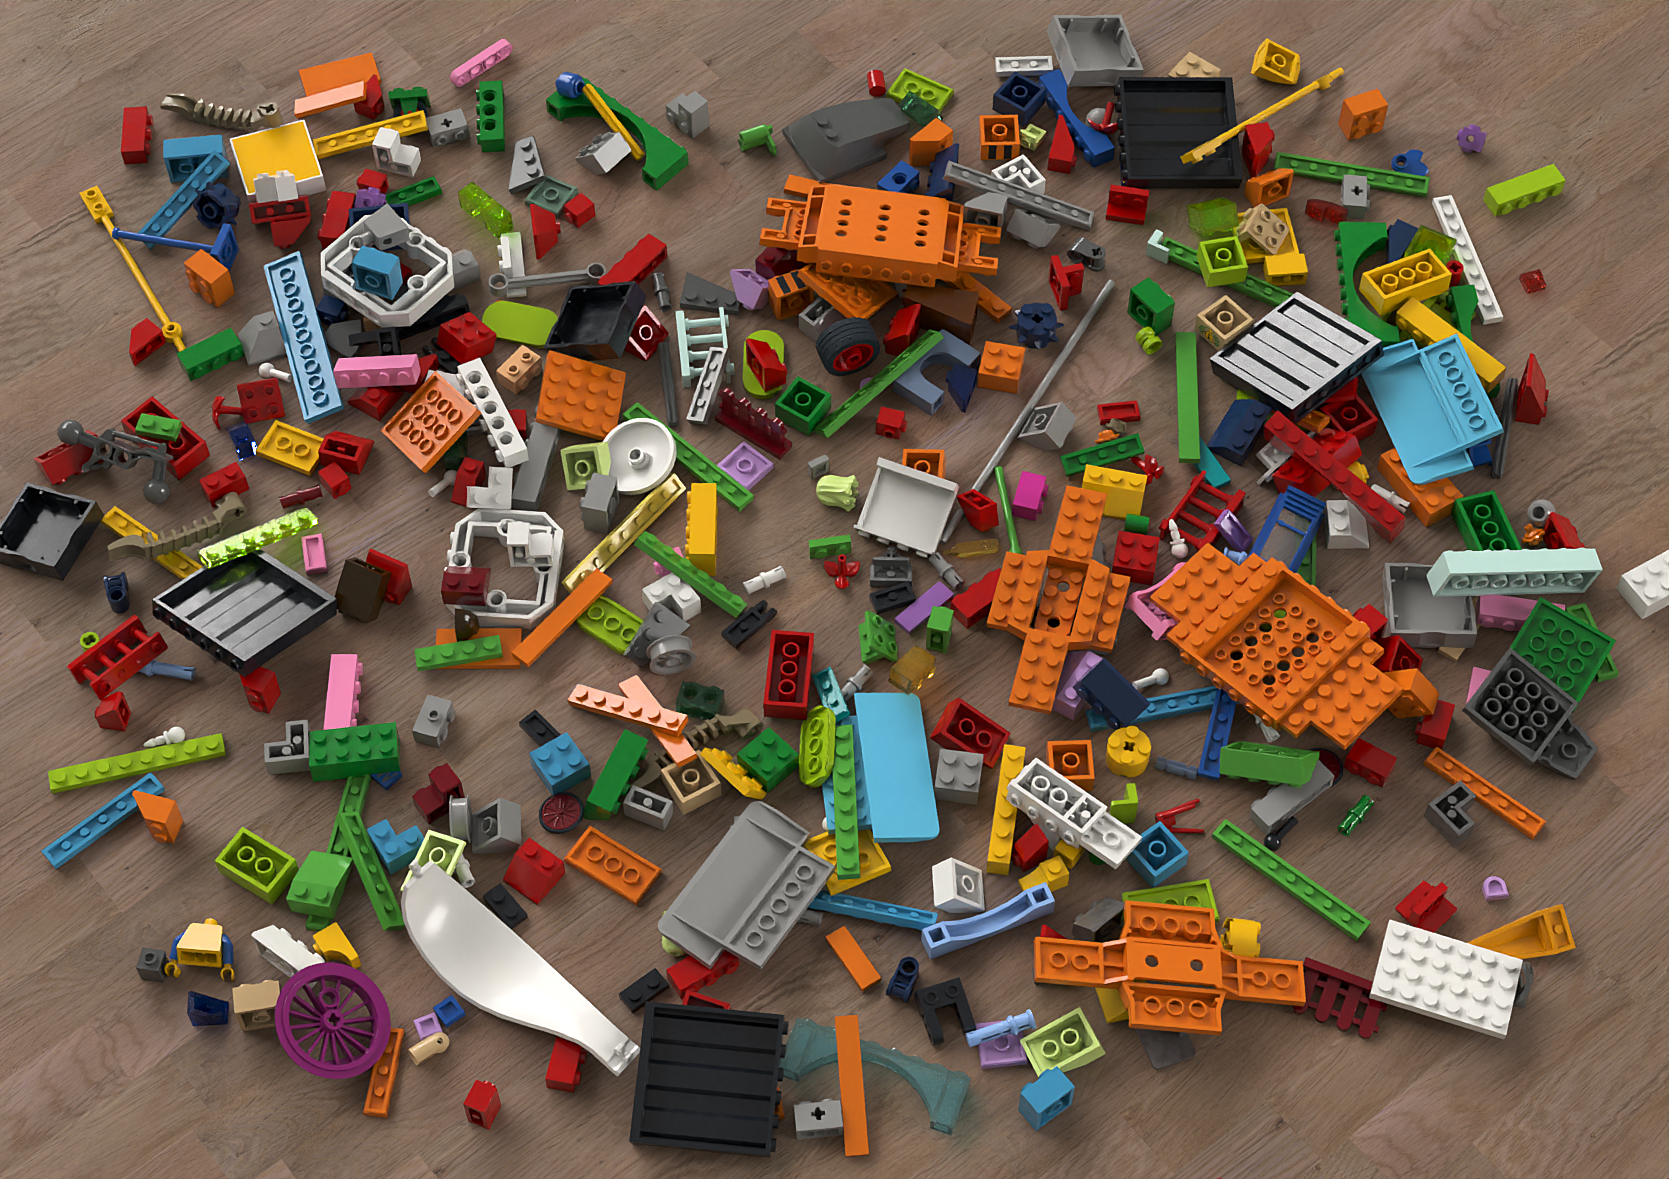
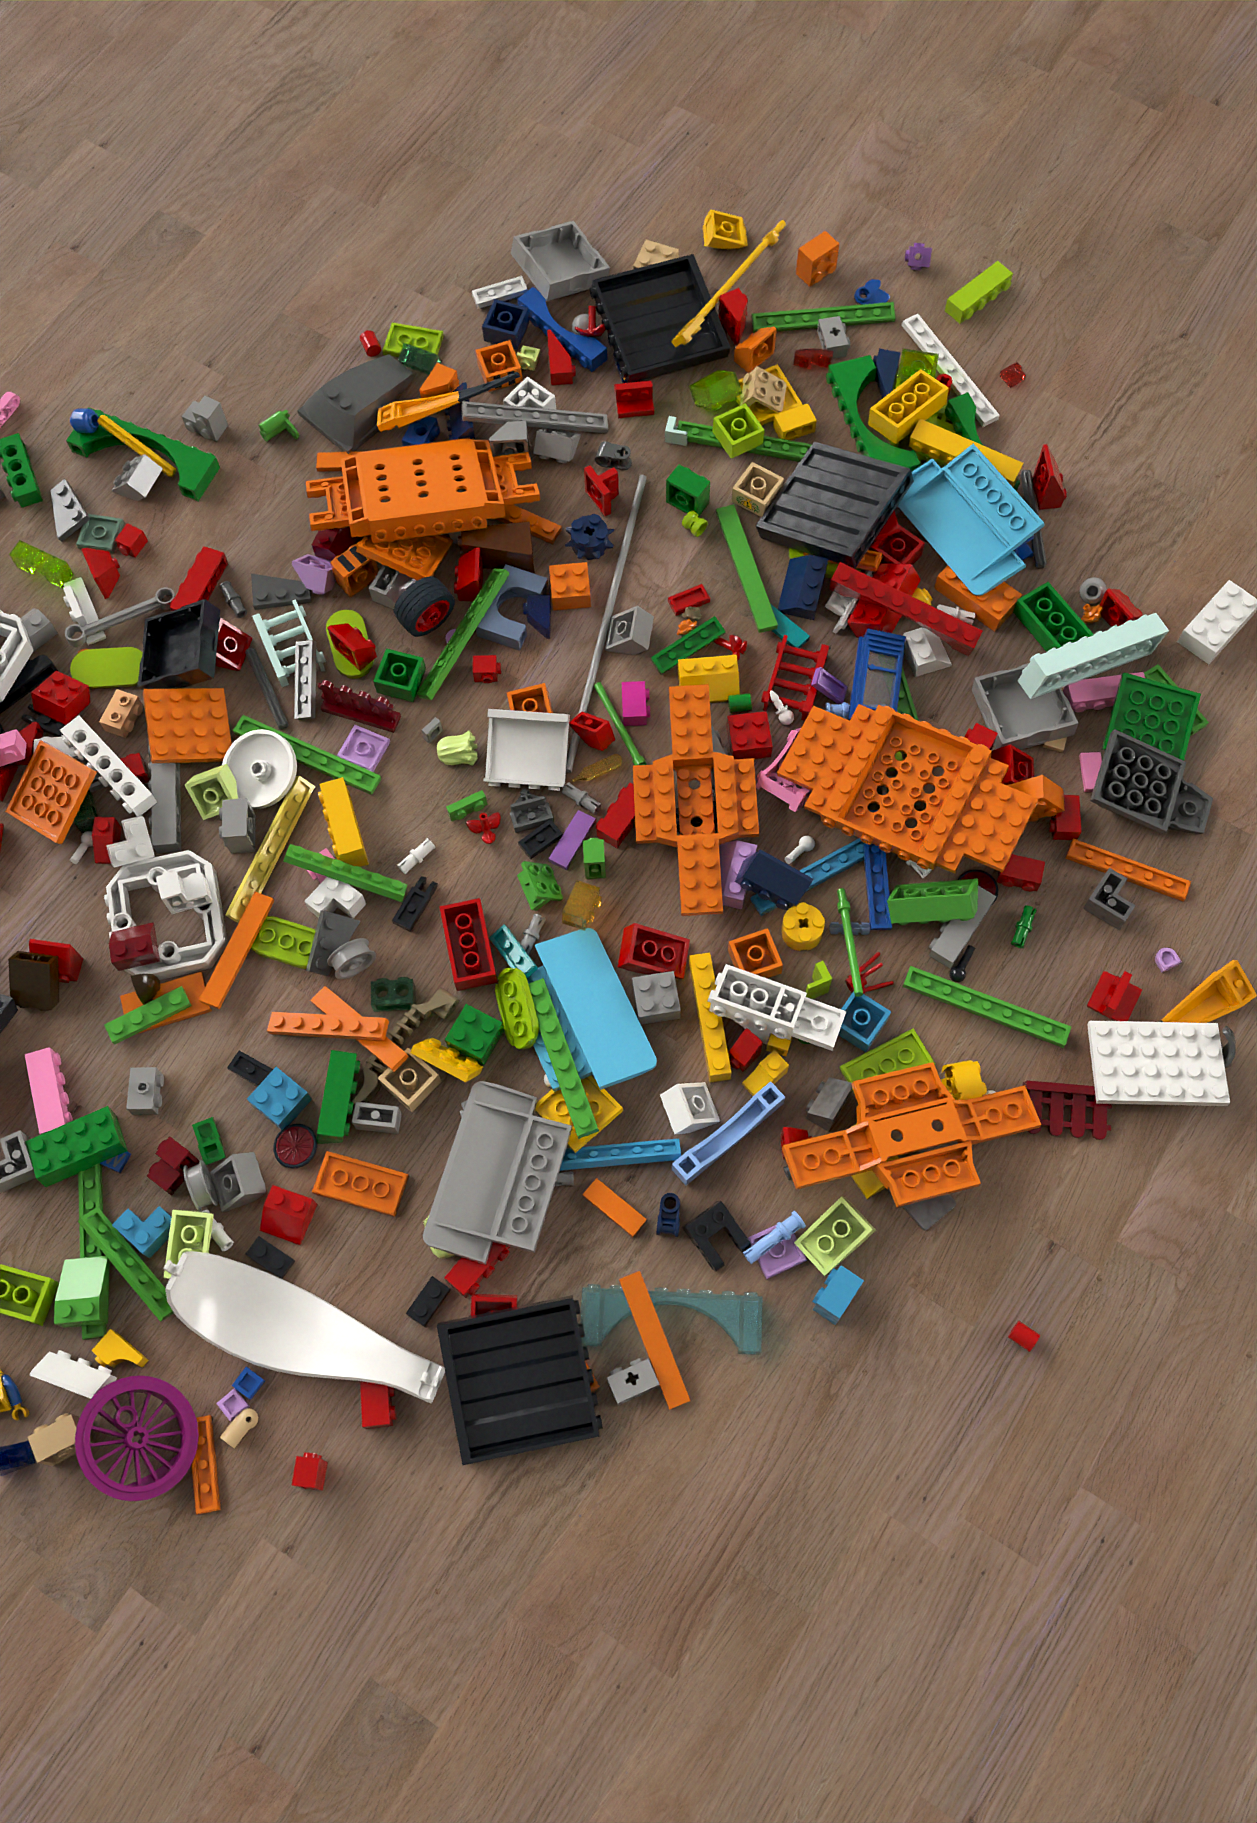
camera: 15 degrees left, 10 degrees up
(480, 784) = (209, 1140): none -> green slope
(894, 158) = (410, 411): none -> light orange plate
(1176, 747) = (844, 909): none -> bright green bar

